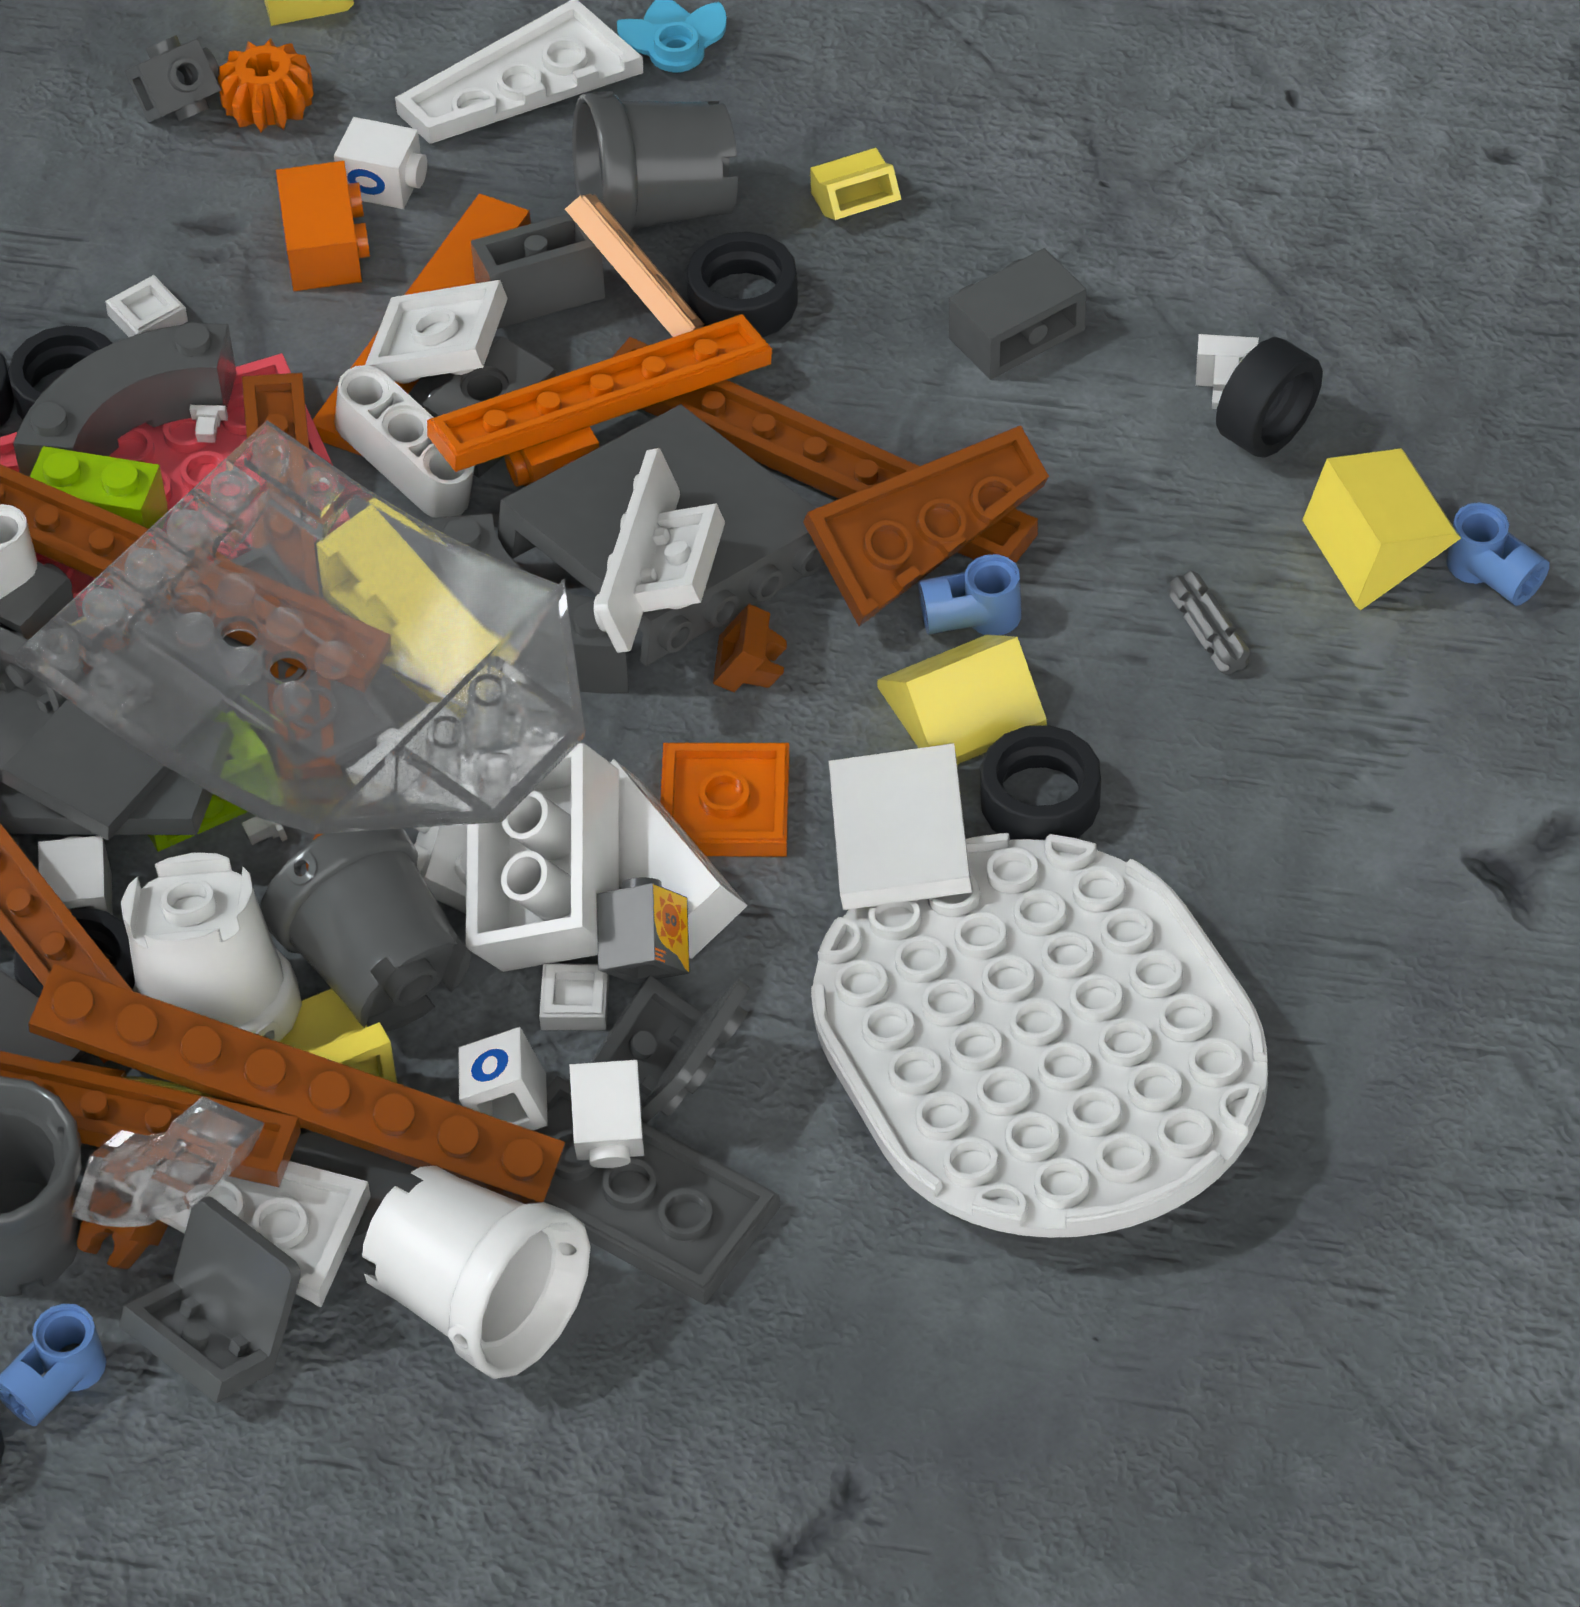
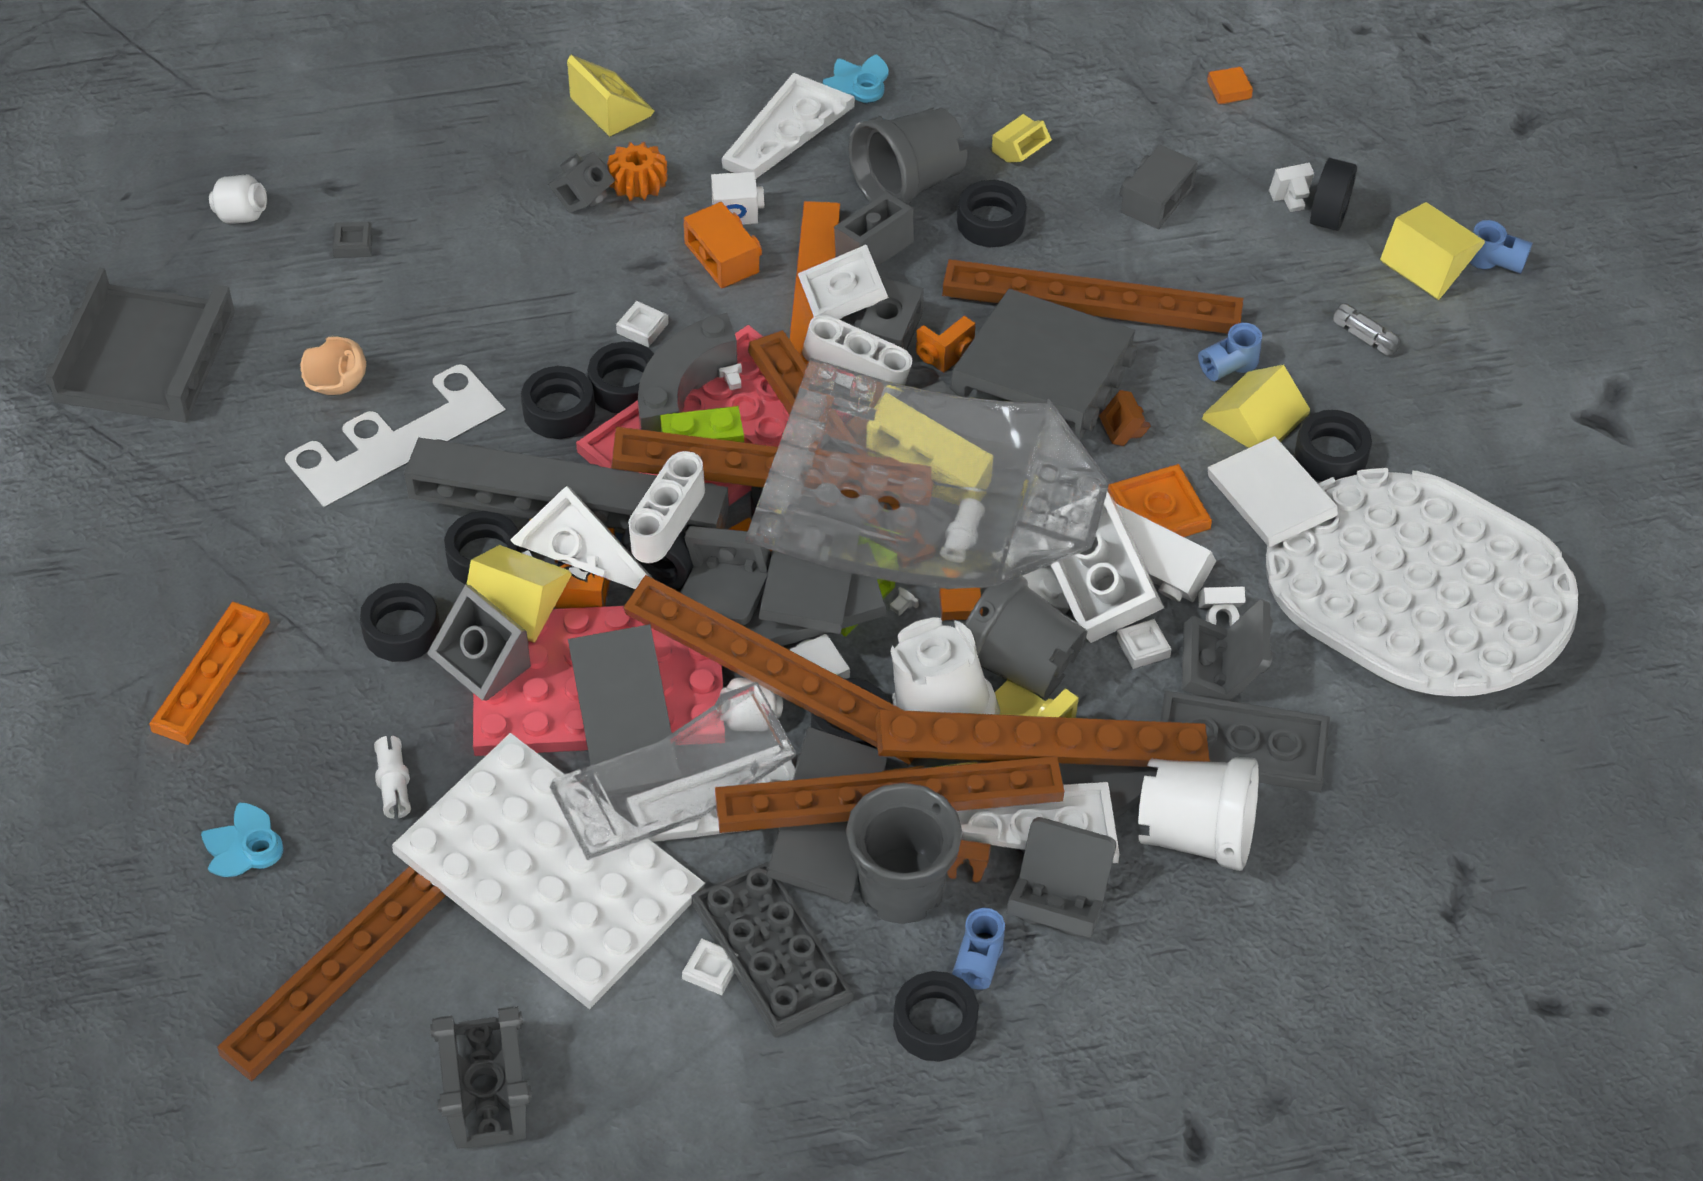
camera: 25 degrees left, 0 degrees up
(160, 1174) = (1011, 808): clear brick -> none
(504, 1079) = (1145, 699): white brick -> none
(598, 392) = (957, 295): orange tile -> none
(606, 1112) = (1220, 699): white brick -> none
(633, 265) = (938, 217): light nougat tile -> none
(642, 931) = (1180, 590): brick -> none
(658, 556) = (1076, 373): white bracket -> none
(718, 966) = (1222, 599): none -> white tile
(914, 522) = (1184, 316): dark orange wing -> none
(1232, 187) = (1230, 85): none -> orange tile

